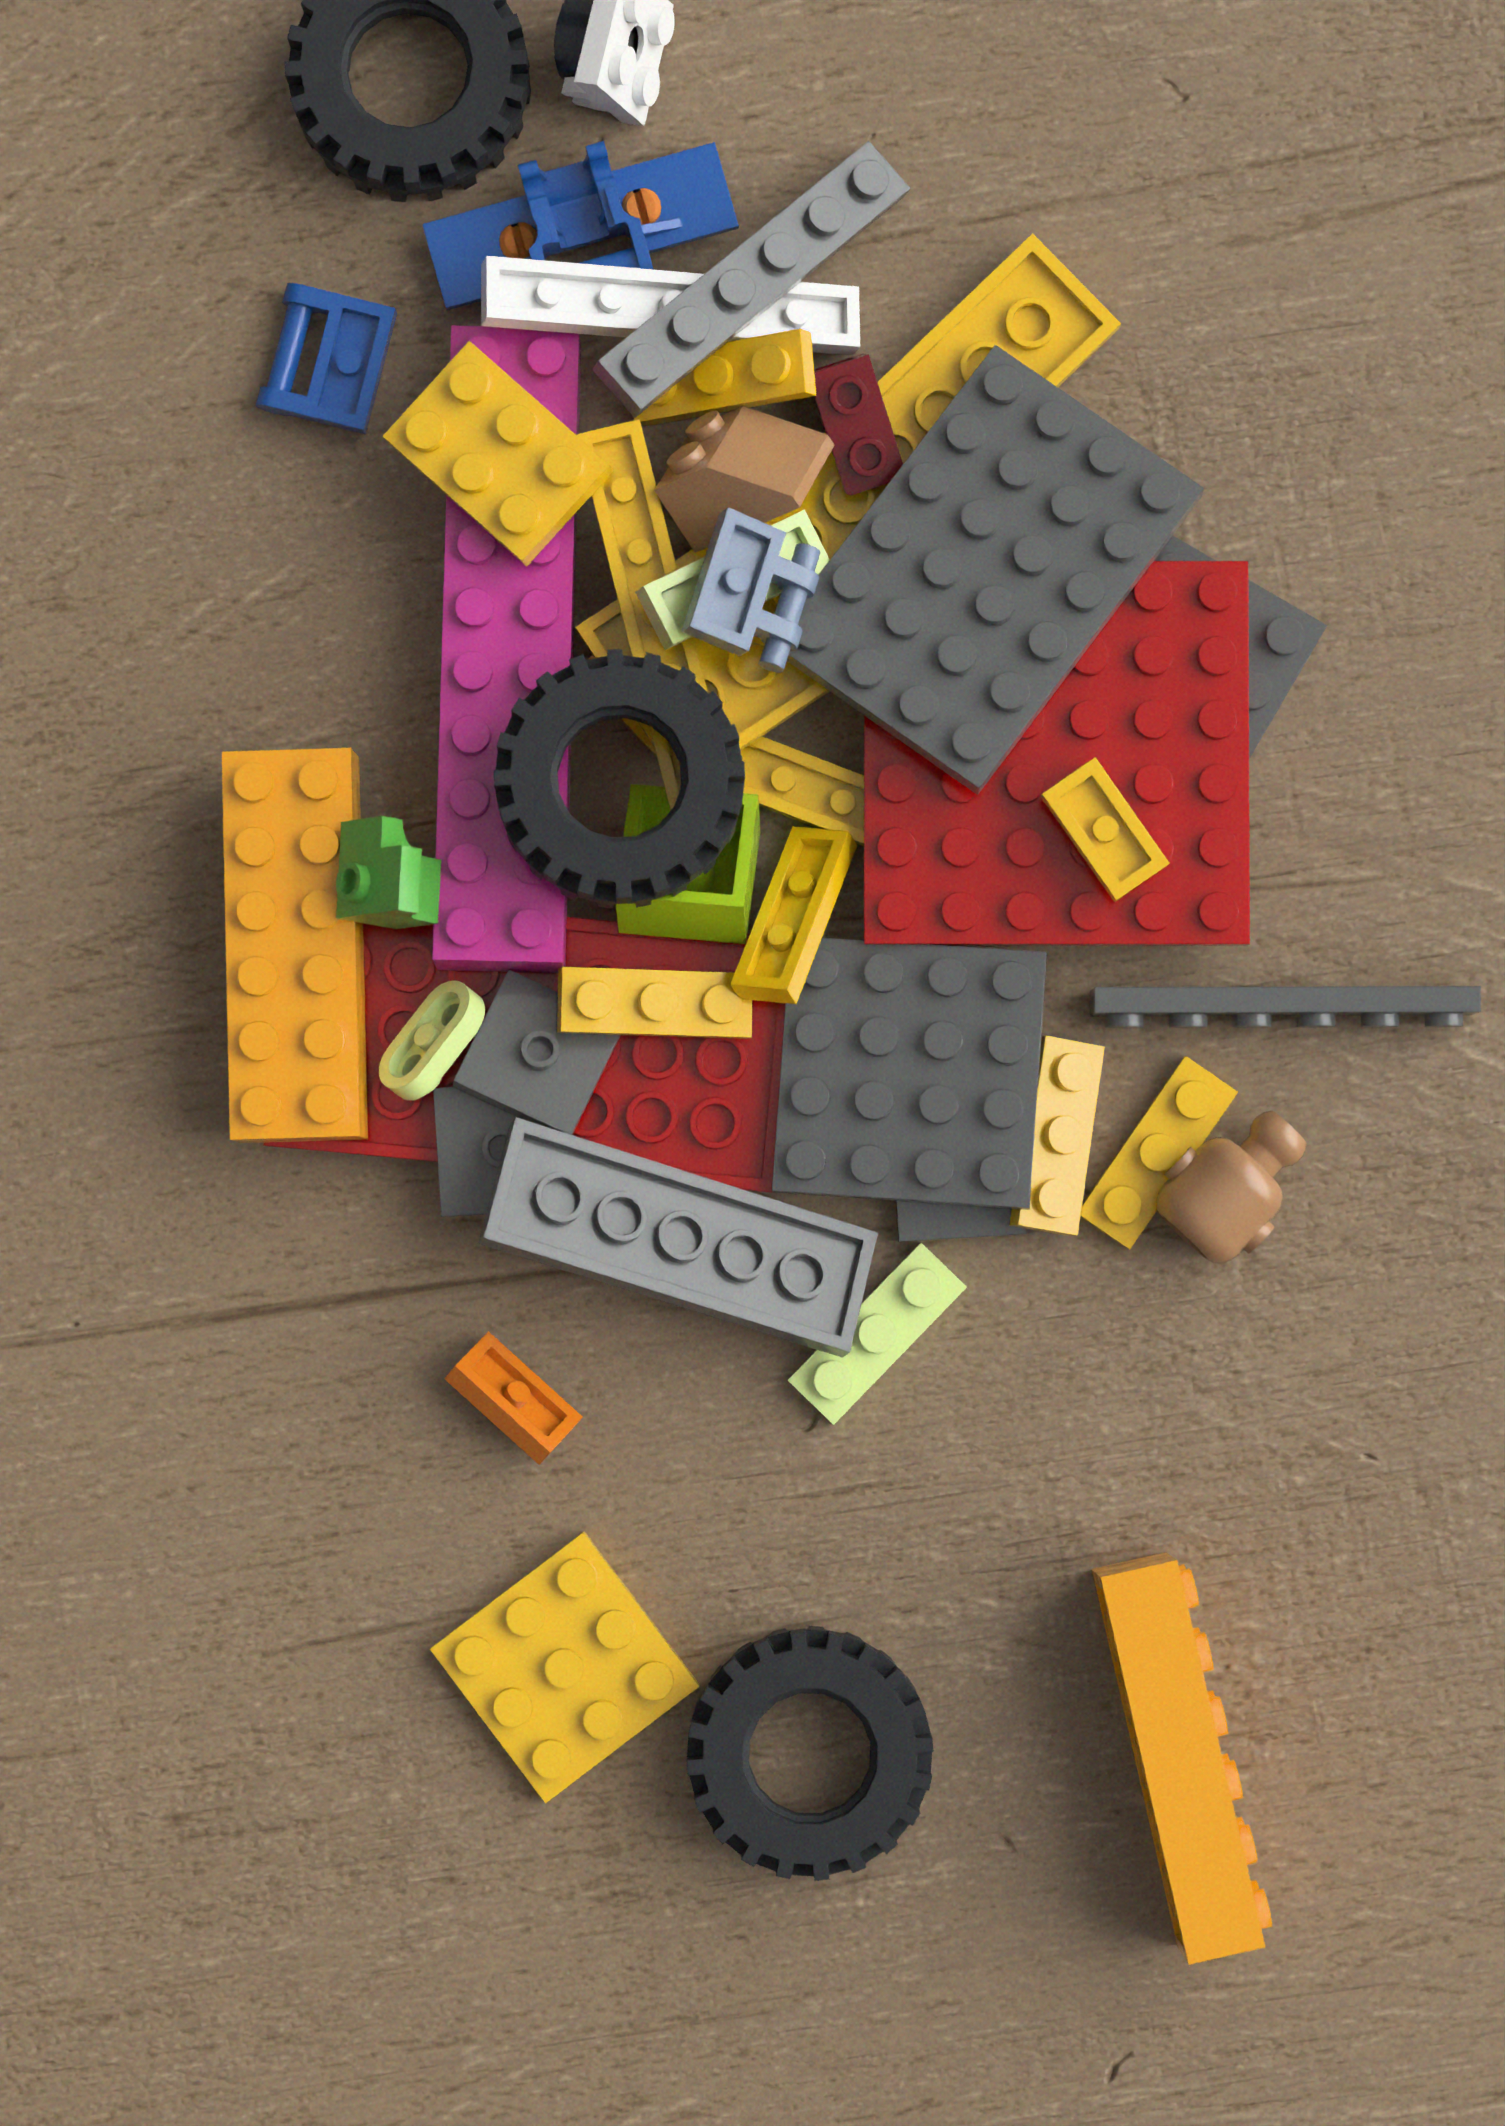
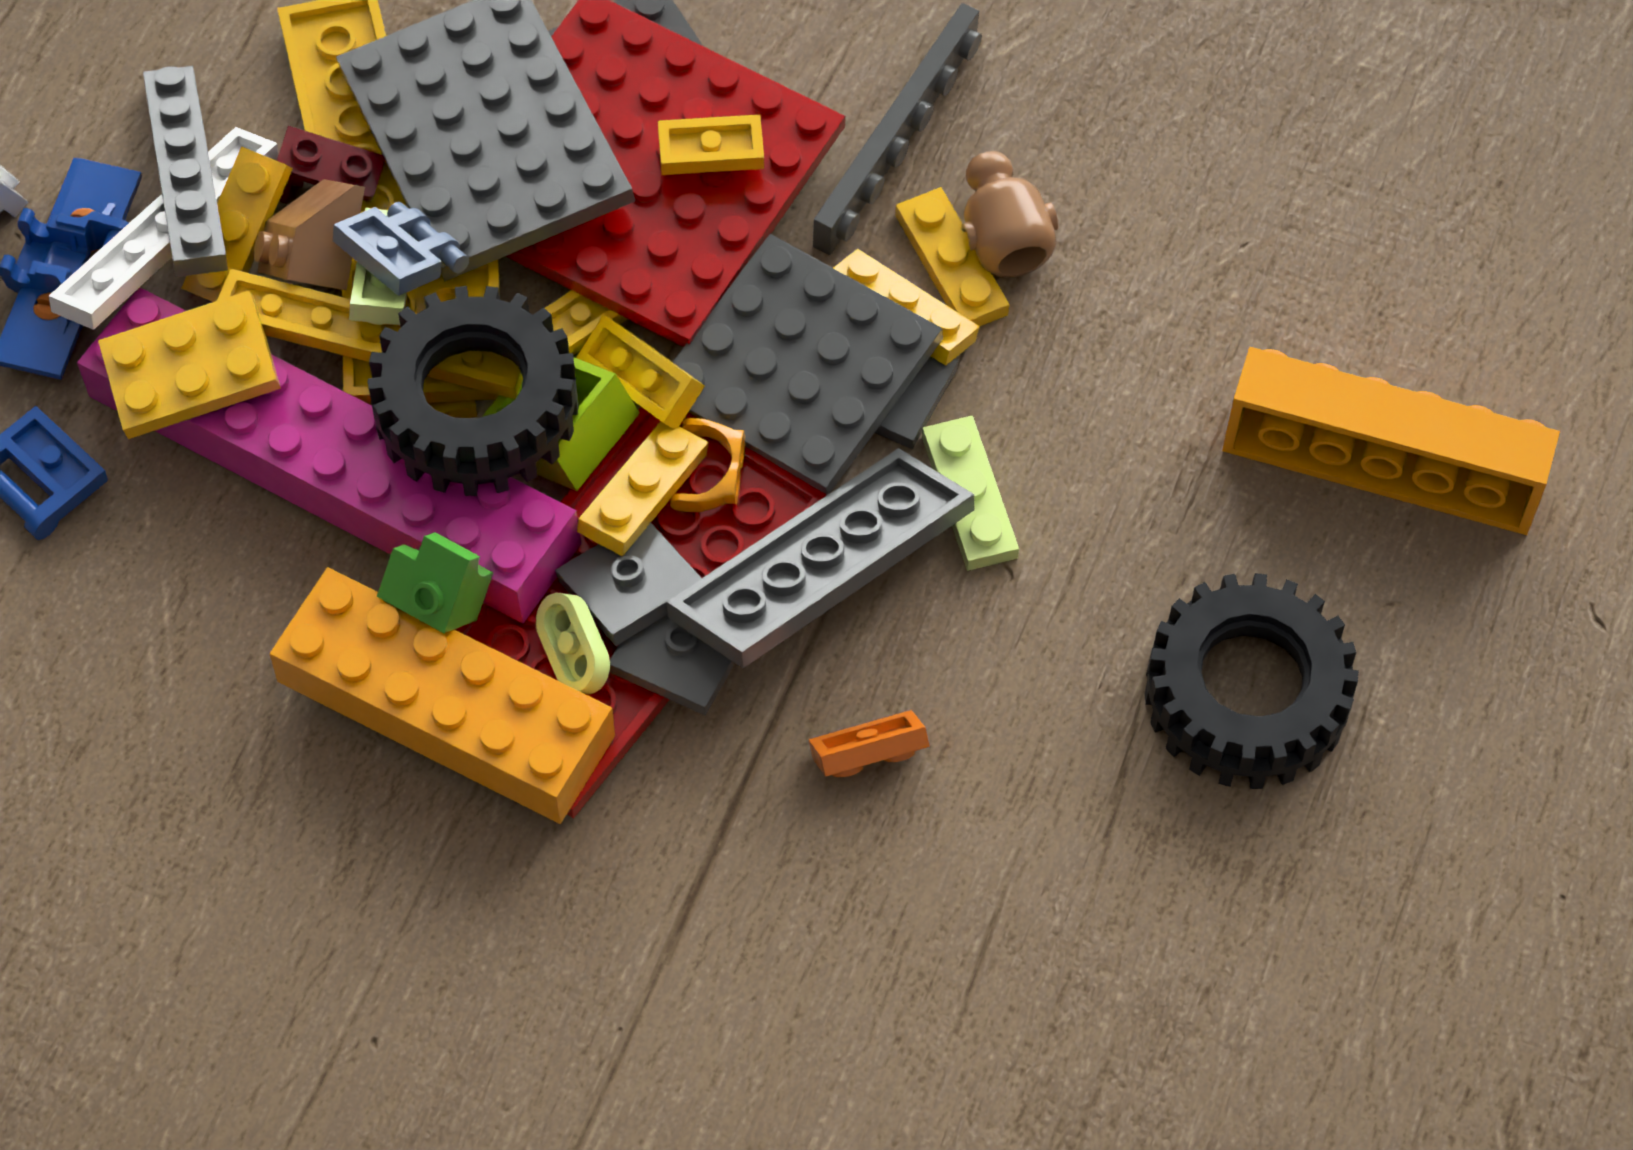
camera: 65 degrees left, 25 degrees down
(564, 1667) = (1090, 822): yellow plate -> none
(712, 1091) = (728, 488): none -> light orange cap

